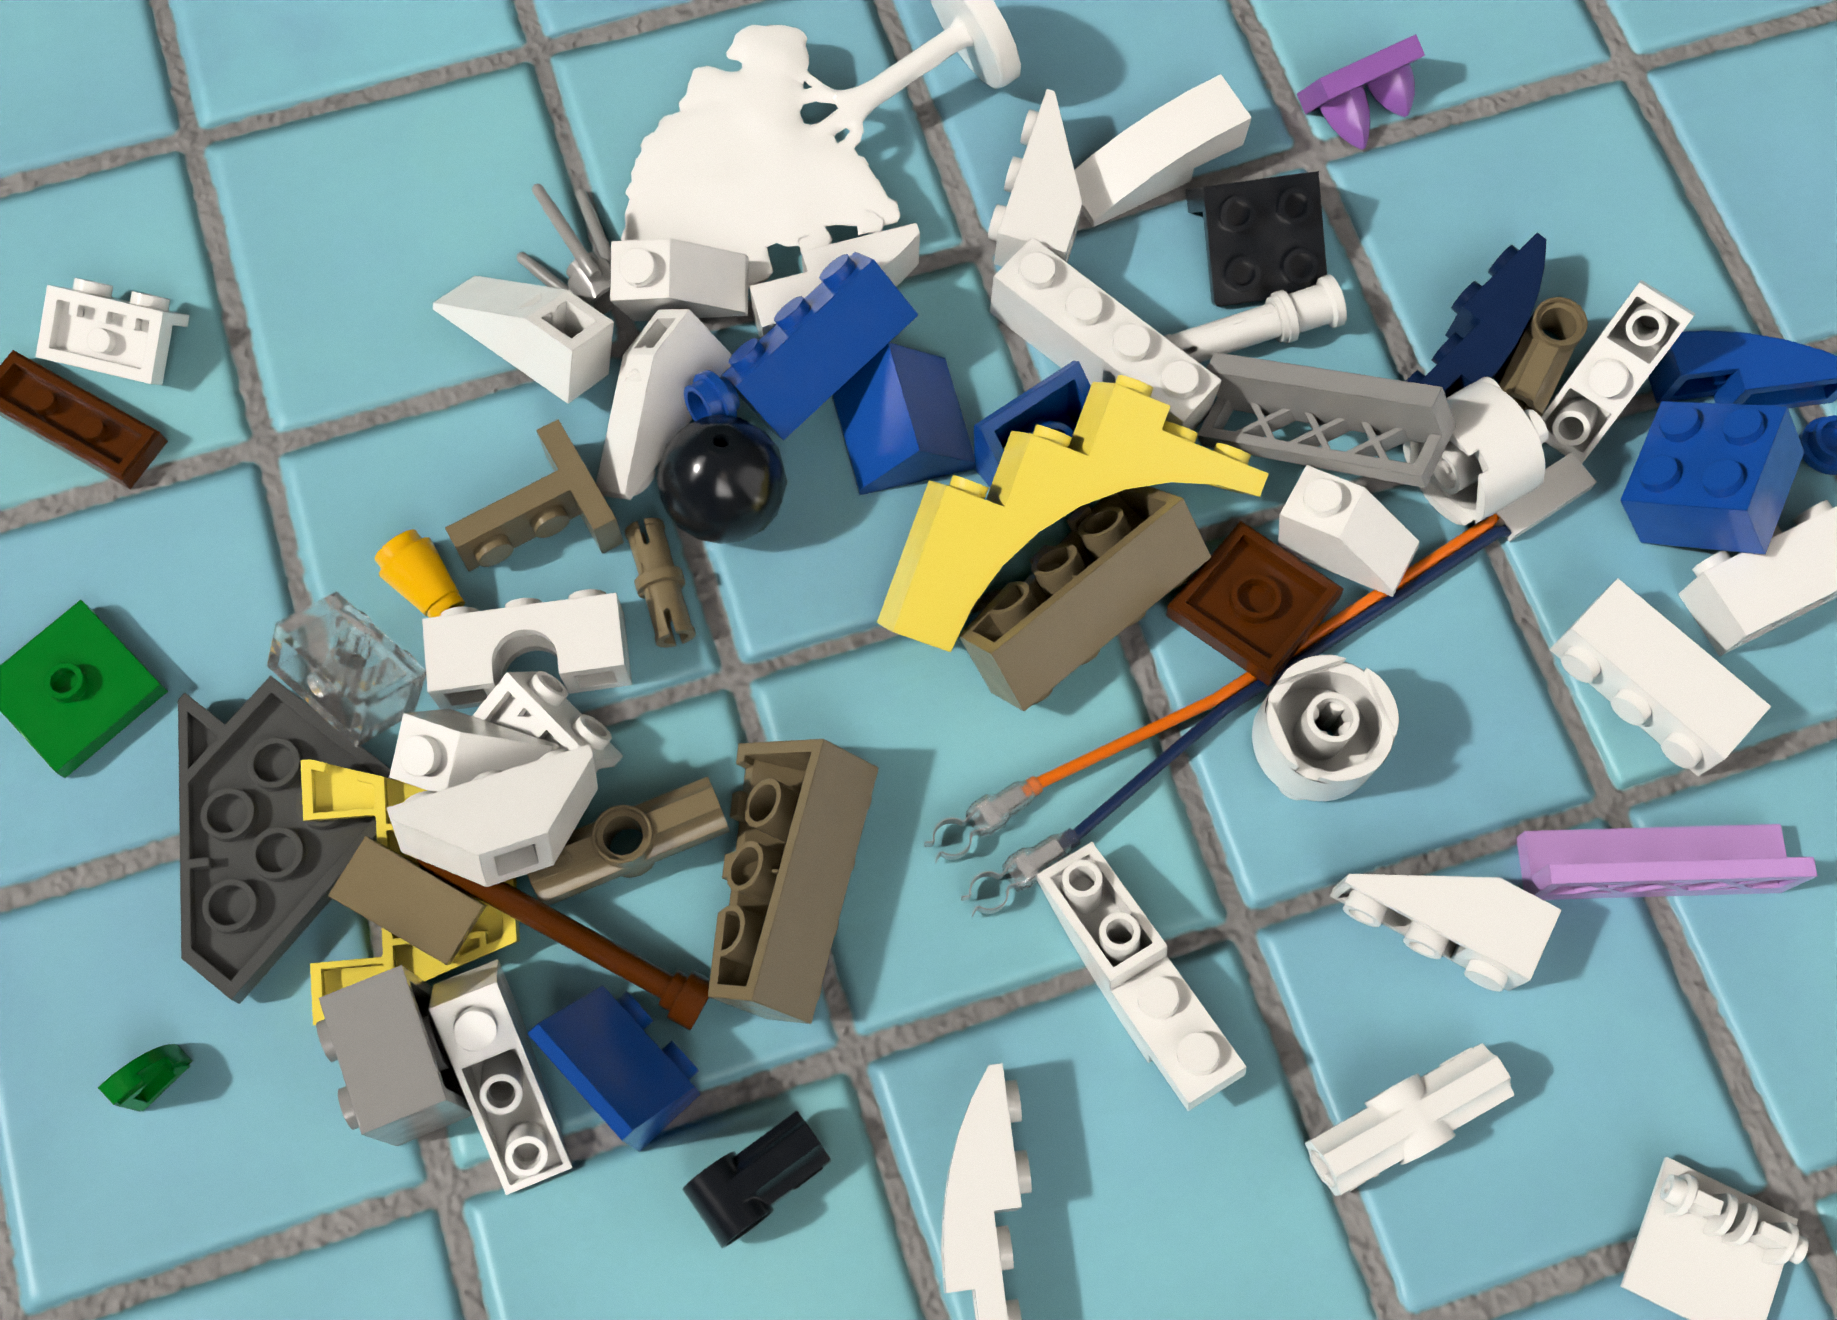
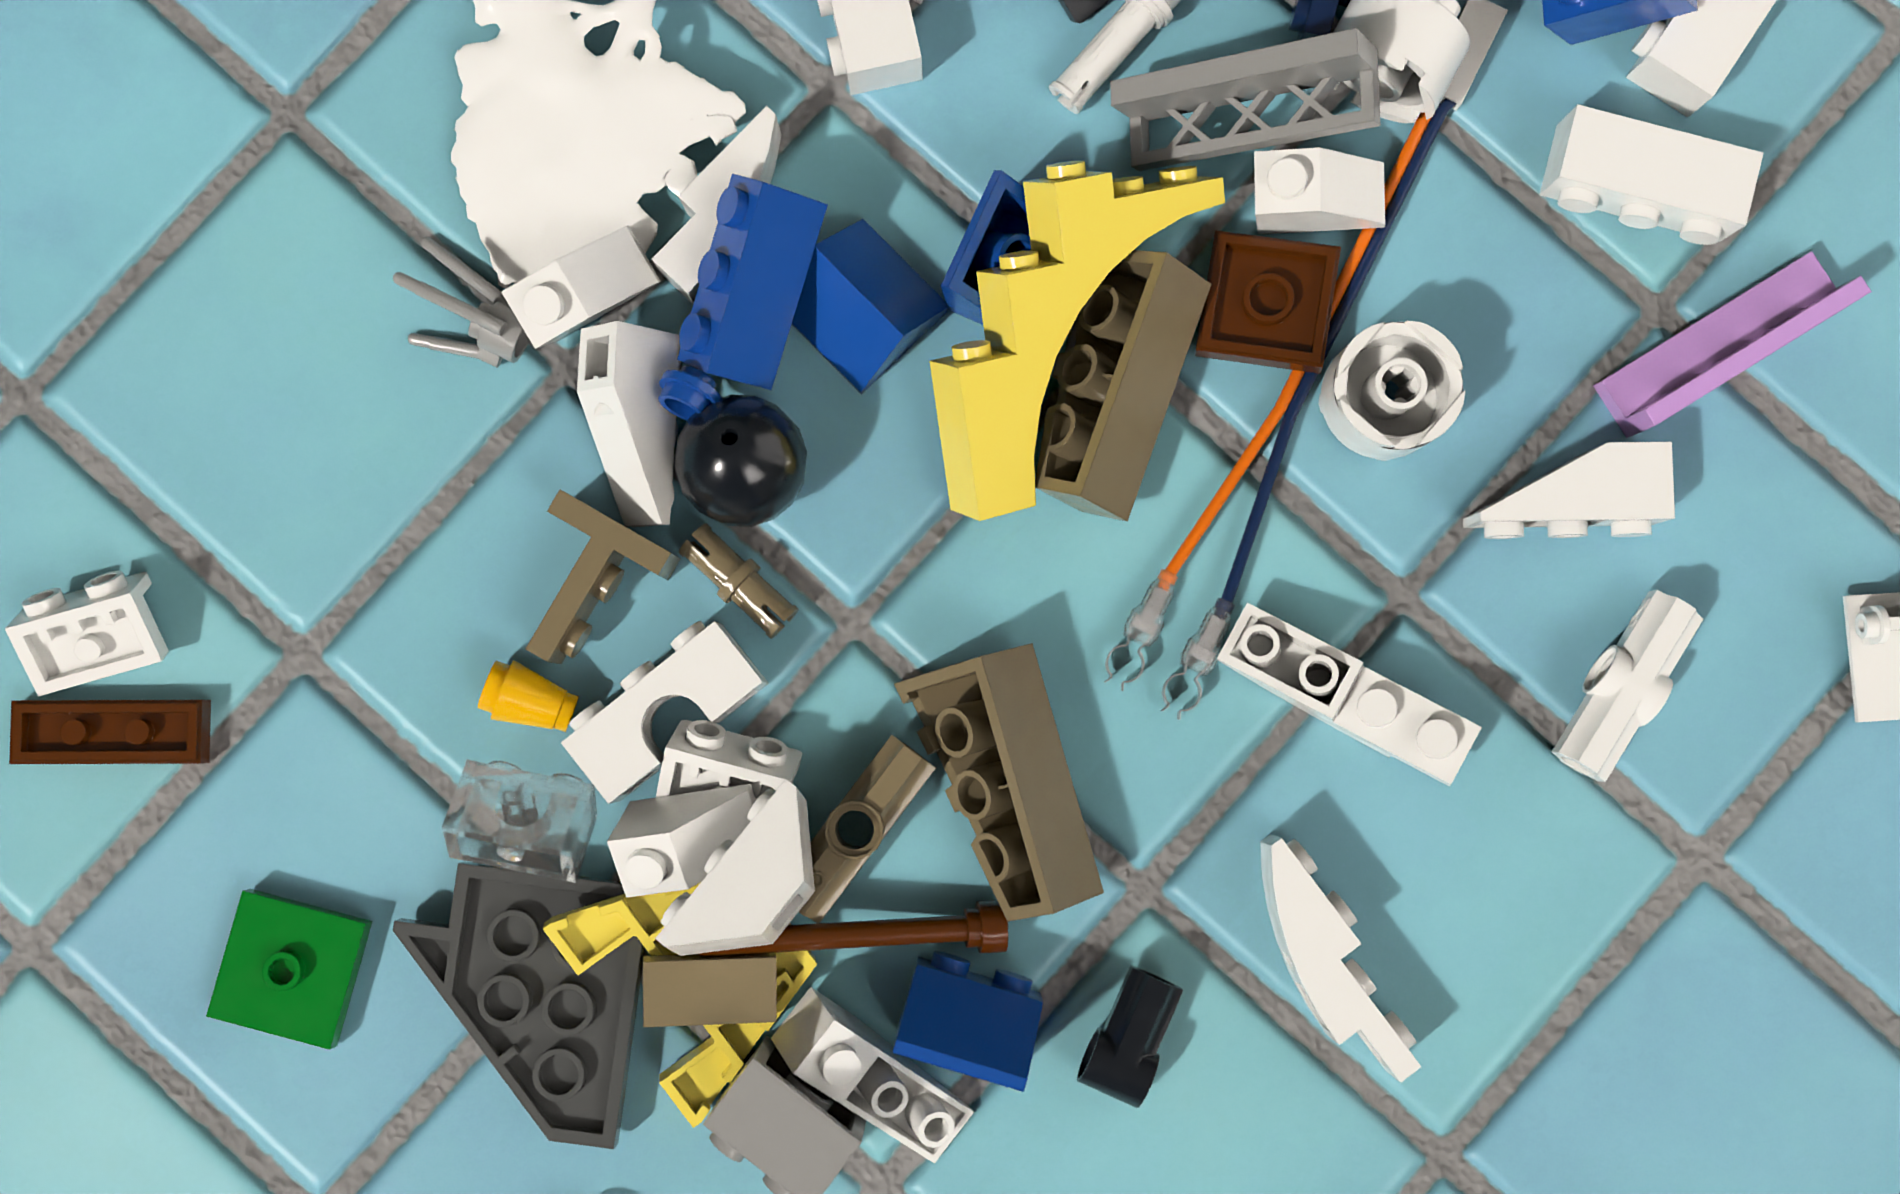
camera: 25 degrees left, 15 degrees up
(536, 330) = (474, 410): white slope -> none
(1080, 322) = (995, 124): white brick -> none

